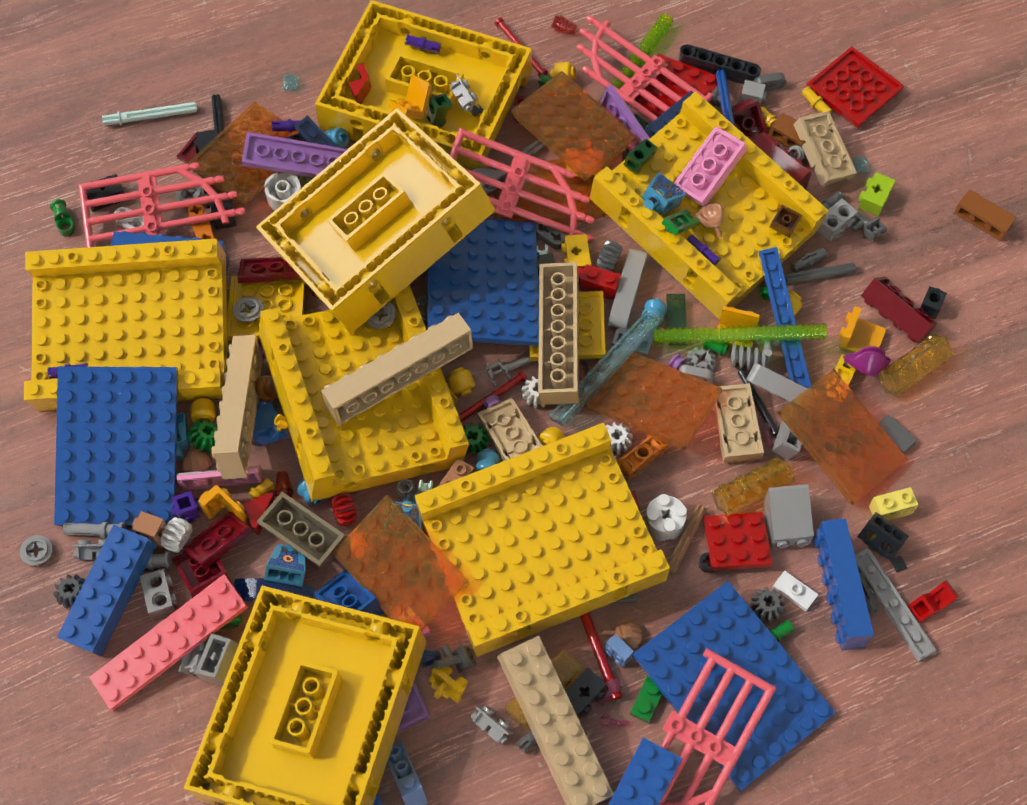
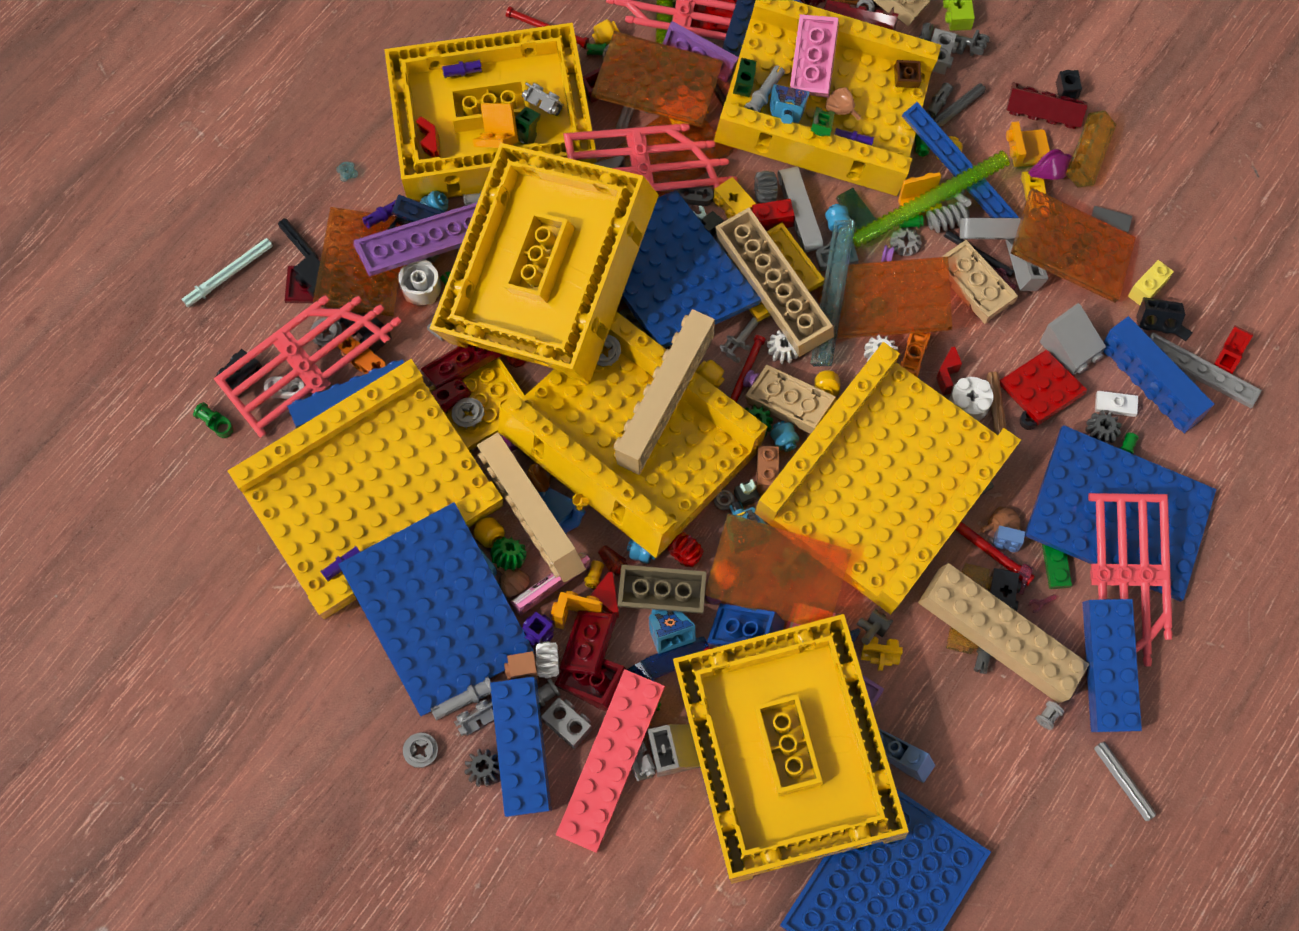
camera: 30 degrees left, 5 degrees up
(243, 287) = (450, 394): none -> dark red leg
(486, 718) = (951, 665): light grey hinge -> none
(643, 178) = (760, 97): none -> light grey pin
(664, 480) = (950, 365): none -> red slope
(701, 373) = (915, 253): light grey beam -> none
(752, 486) = (1026, 331): clear yellow brick -> none

